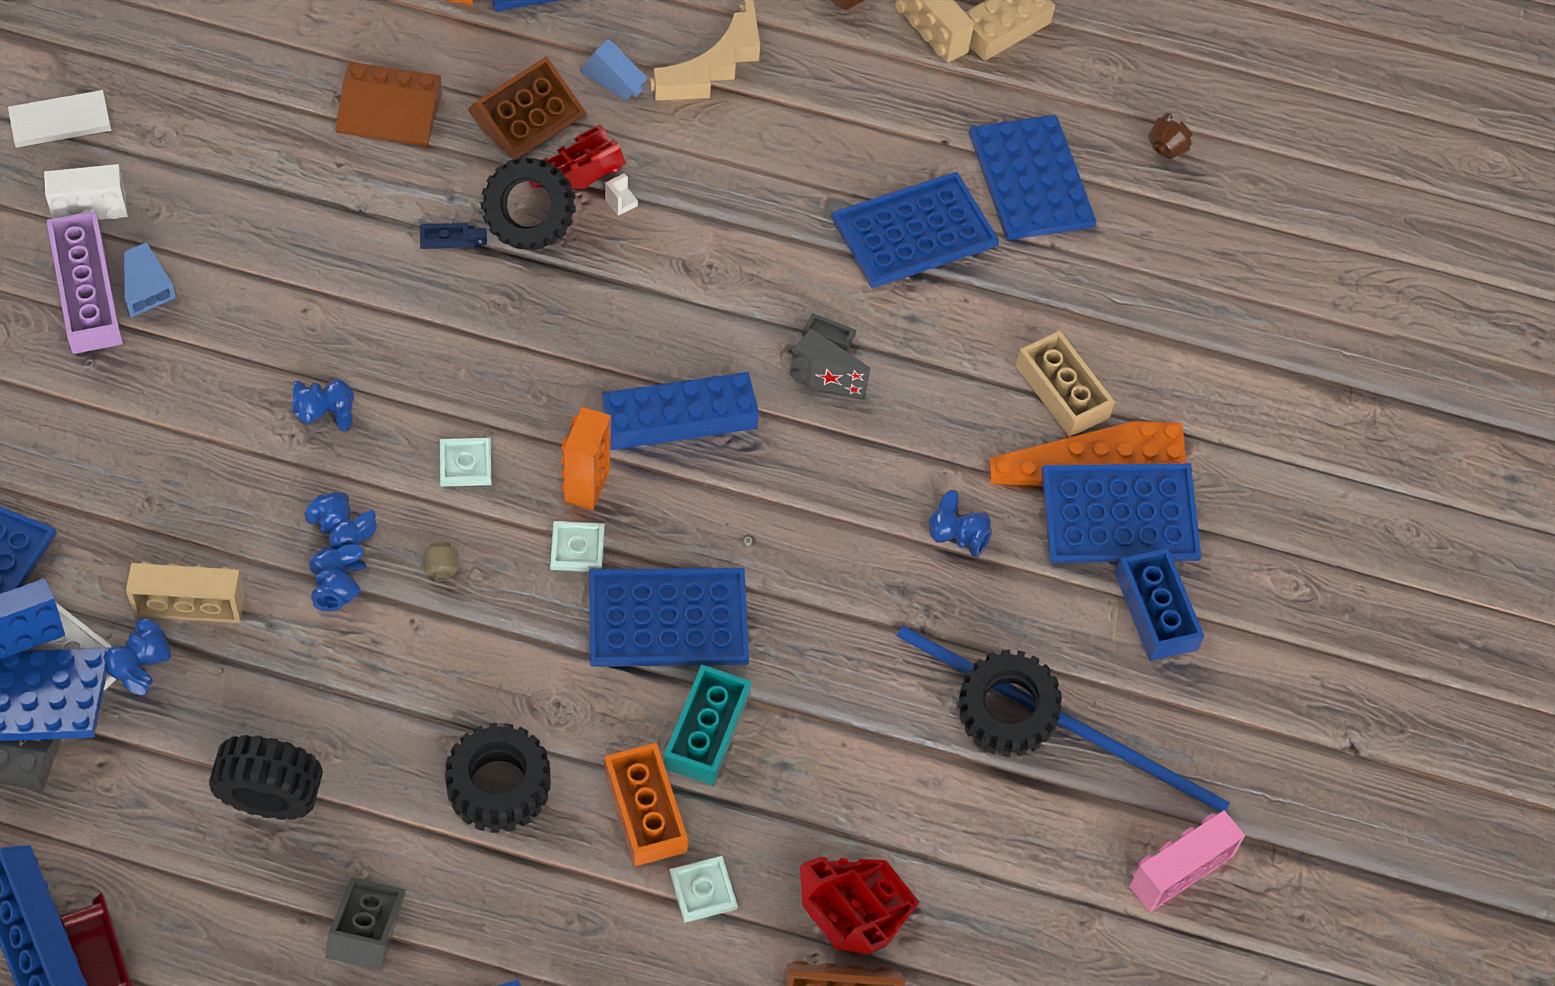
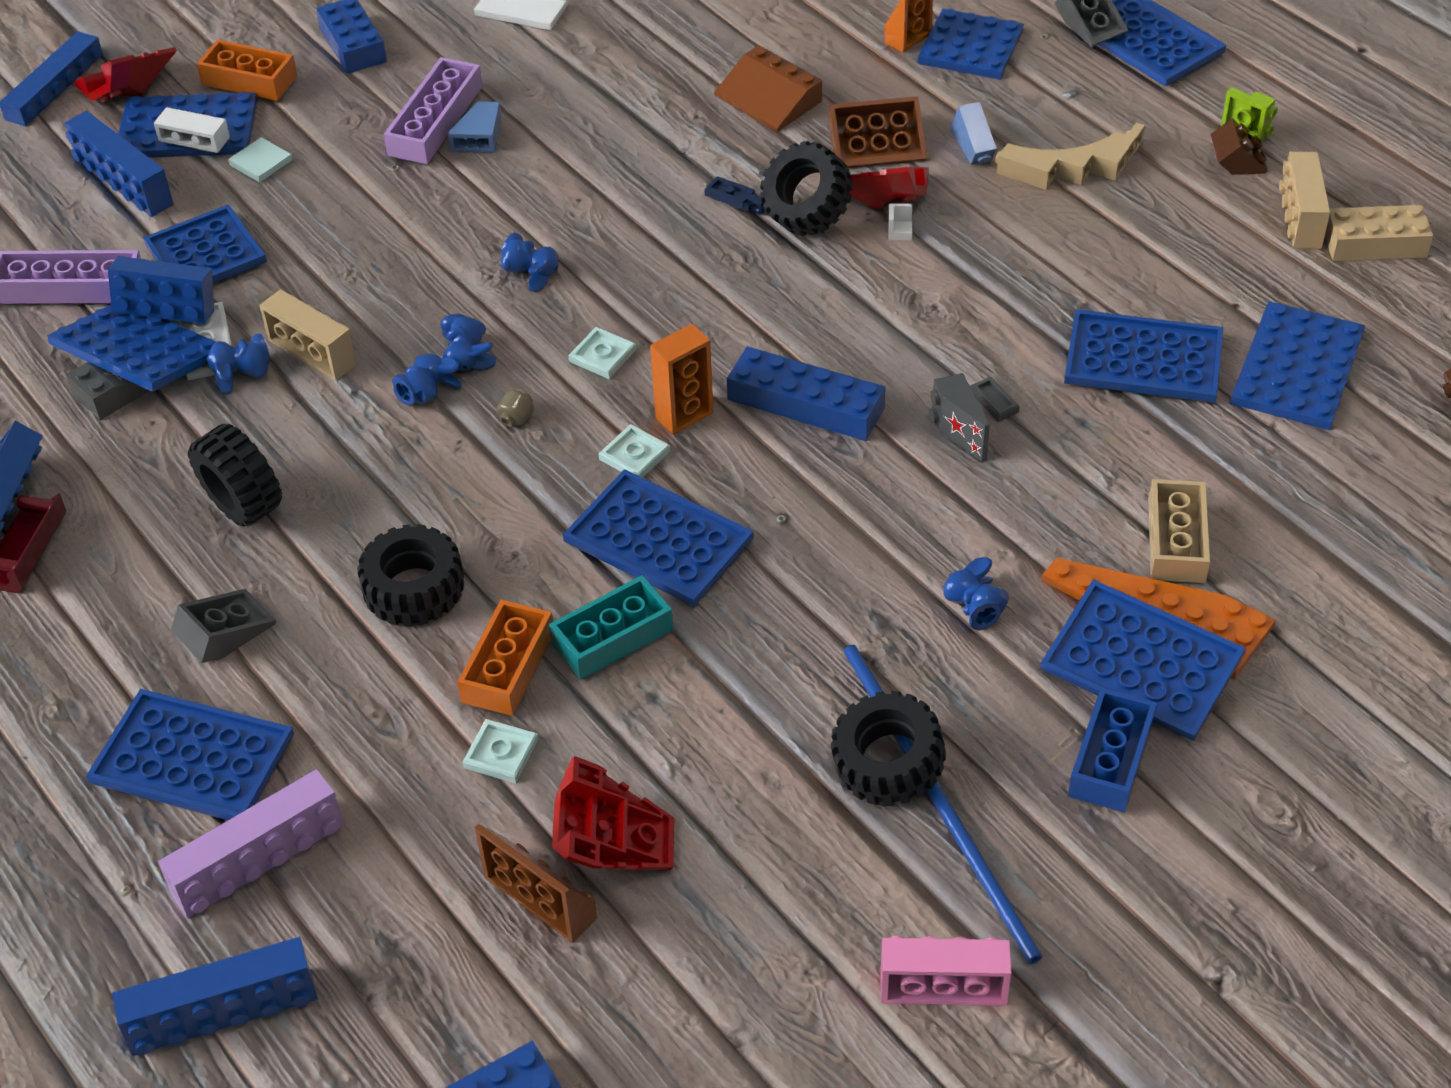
camera: 45 degrees right, 10 degrees down
(86, 191) = (494, 52): white brick -> none

